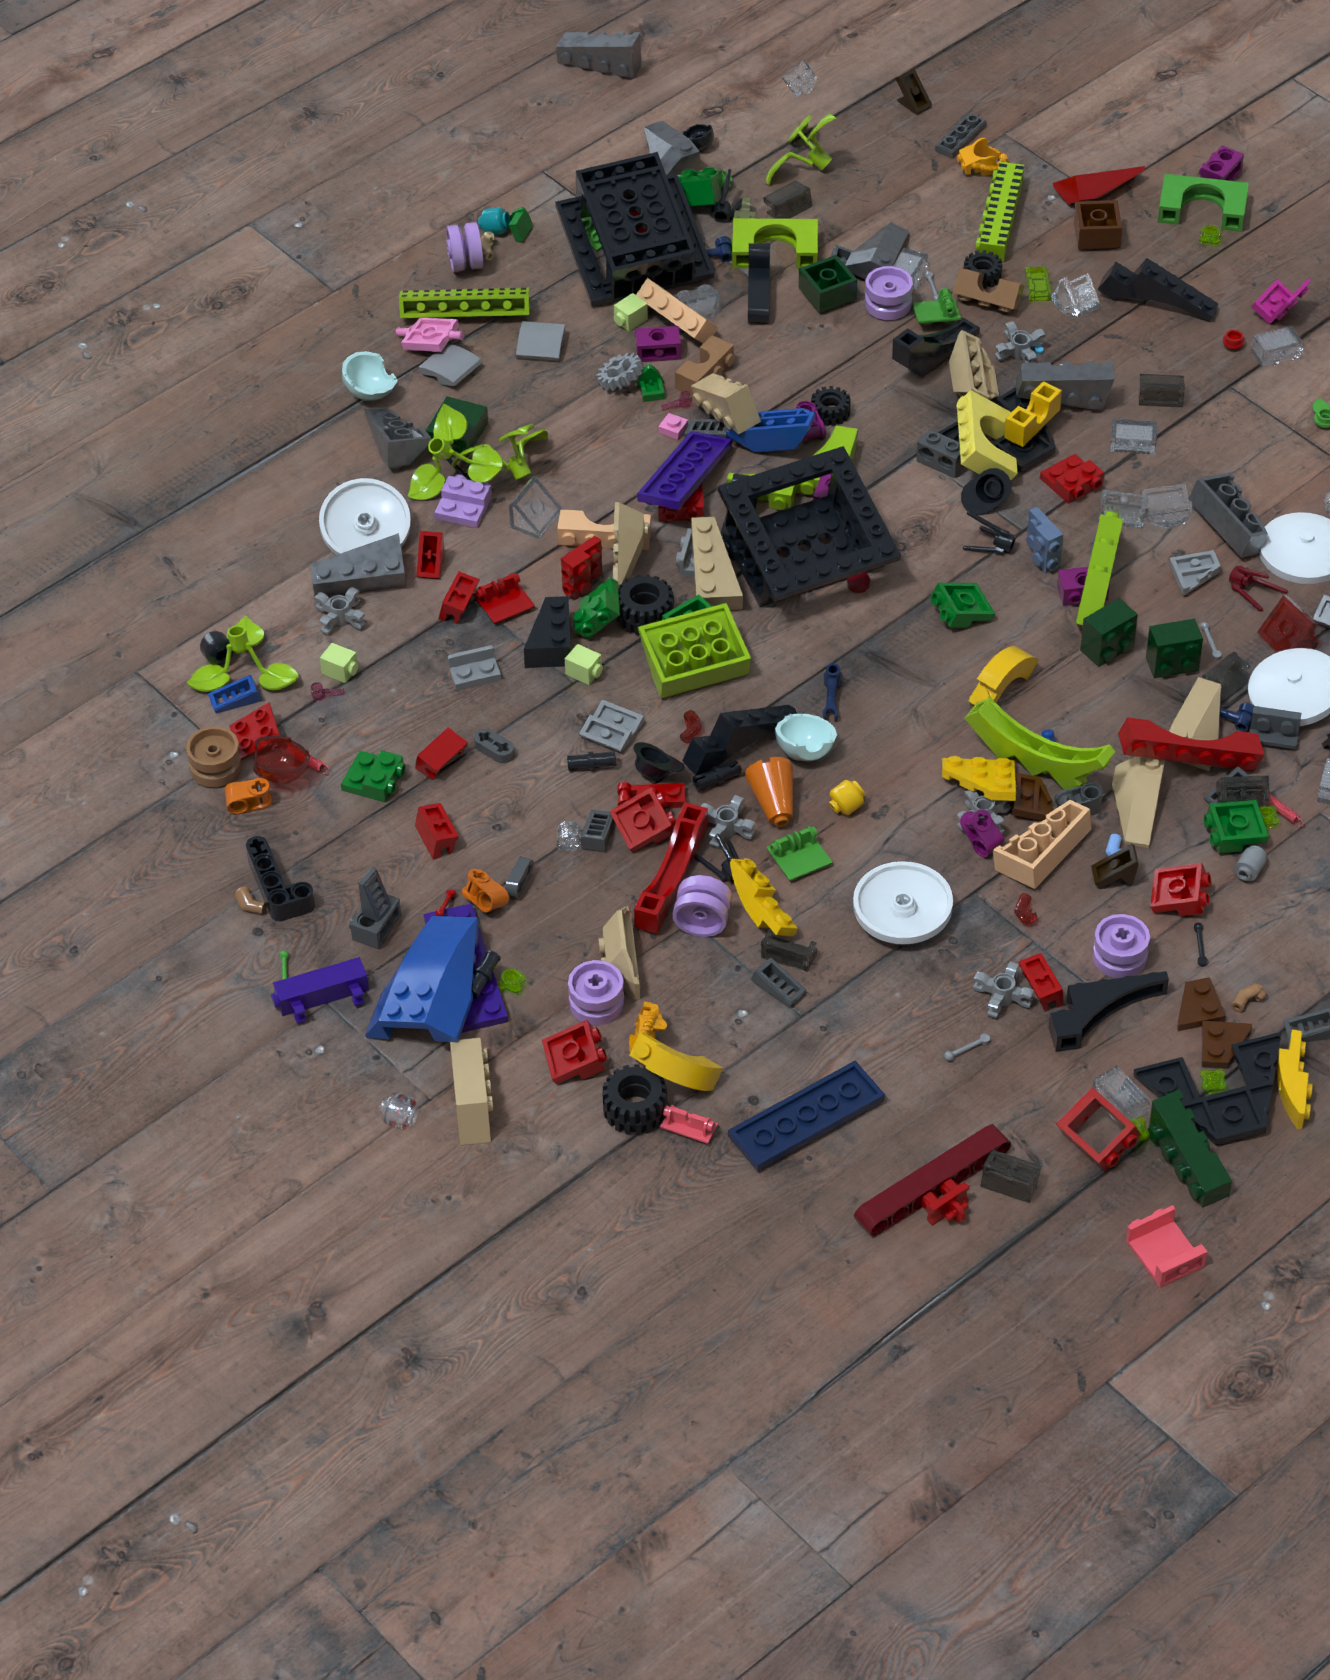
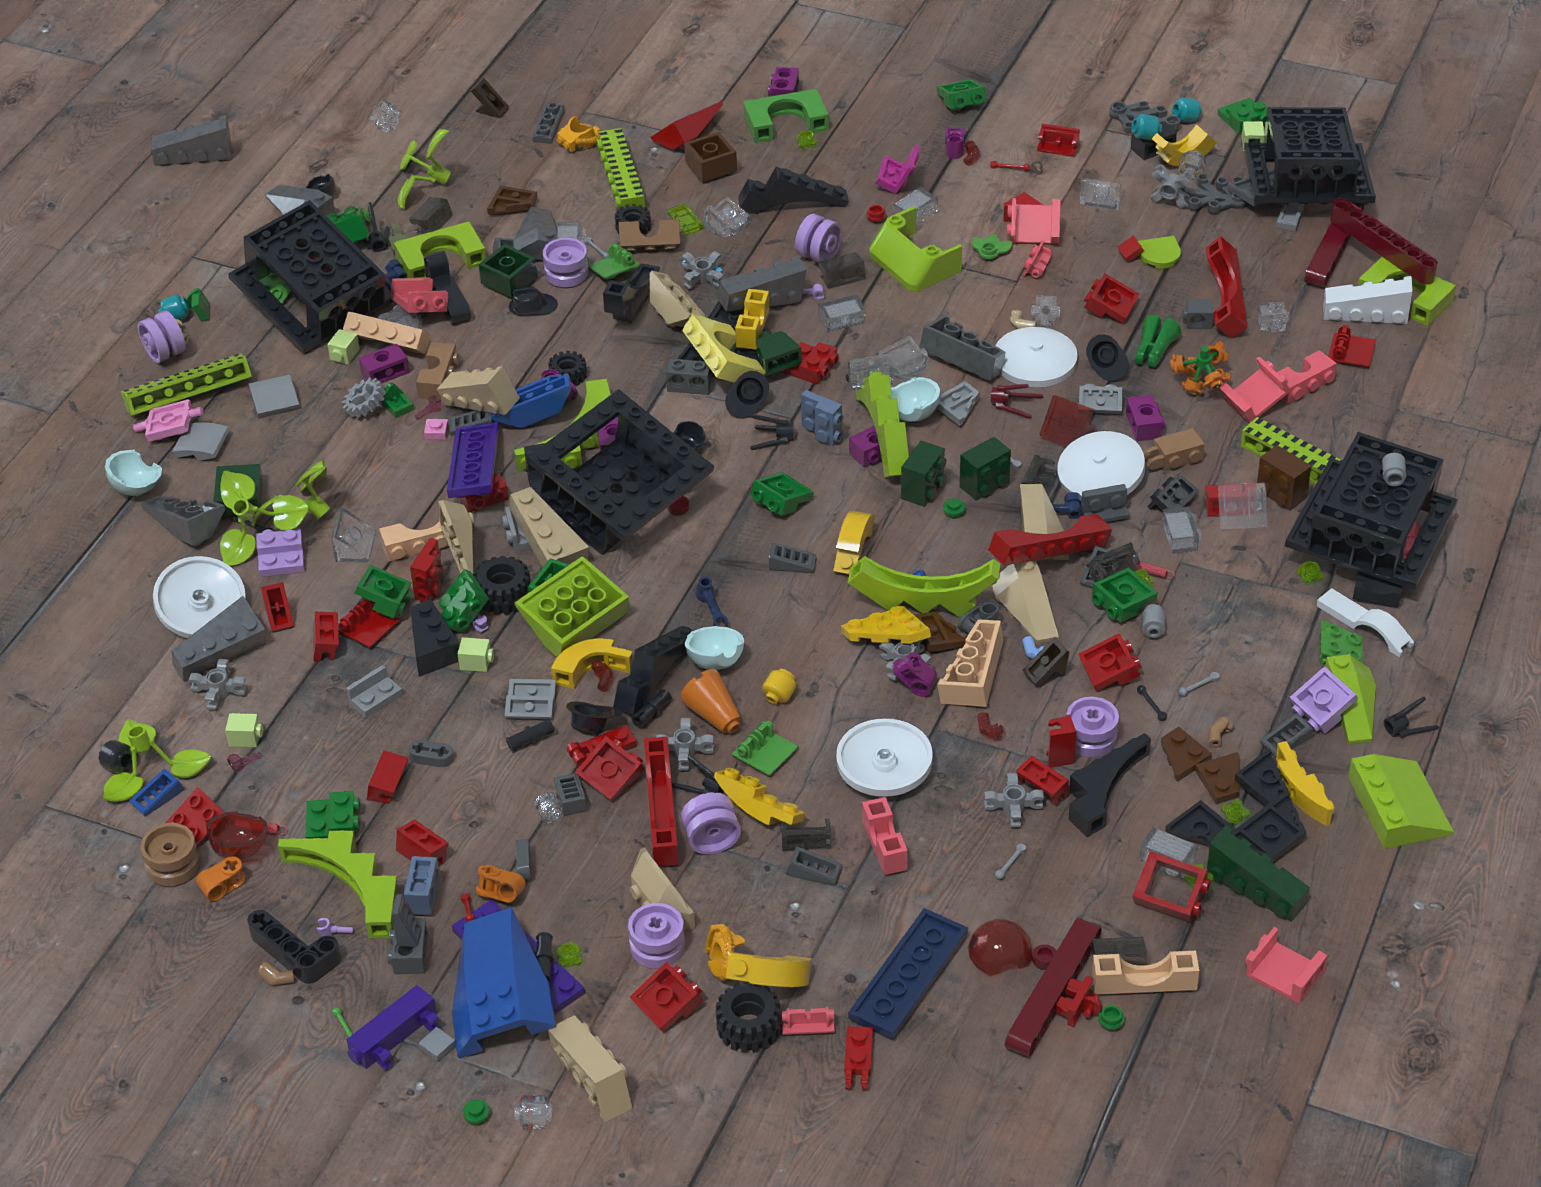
camera: 25 degrees left, 5 degrees down
(316, 877) = (328, 929): none -> lavender hand
(352, 1091) = (476, 1112): none -> green plate
(353, 1017) = (437, 1044): none -> light grey tile
(360, 813) = (358, 870): none -> lime arch
(414, 867) = (422, 884): none -> sand blue brick
(532, 573) = (386, 590): none -> green plate
(607, 635) = (480, 623): none -> lavender hand
(674, 702) = (579, 657): none -> yellow arch
(716, 1174) = (858, 1055): none -> red hinge
(726, 282) = (417, 295): none -> coral panel
(835, 324) = (530, 301): none -> black piece
(858, 978) = (887, 845): none -> coral arch
(875, 208) = (511, 200): none -> reddish brown wing
(904, 516) = (691, 433): none -> black hair
(906, 1122) = (1000, 945): none -> clear red cylinder
(920, 672) = (783, 558): none -> dark grey slope
(940, 1146) = (1042, 956): none -> dark red tile
(969, 1230) = (1111, 1017): none -> green plate
(1038, 457) = (777, 352): none -> dark green torso
(1051, 1211) = (1174, 973): none -> light nougat arch
(1078, 950) = (1061, 742): none -> red hinge
(1122, 405) = (816, 290): none -> lavender hand
(1124, 678) = (953, 508): none -> green plate
(1146, 552) = (916, 398): none -> light aqua cylinder
(1152, 348) = (818, 238): none -> lavender wheel
(1233, 410) = (908, 263): none -> lime windscreen
(1279, 941) = (1214, 676): none -> light grey hinge
(1310, 504) = (1019, 322): none -> tan arm

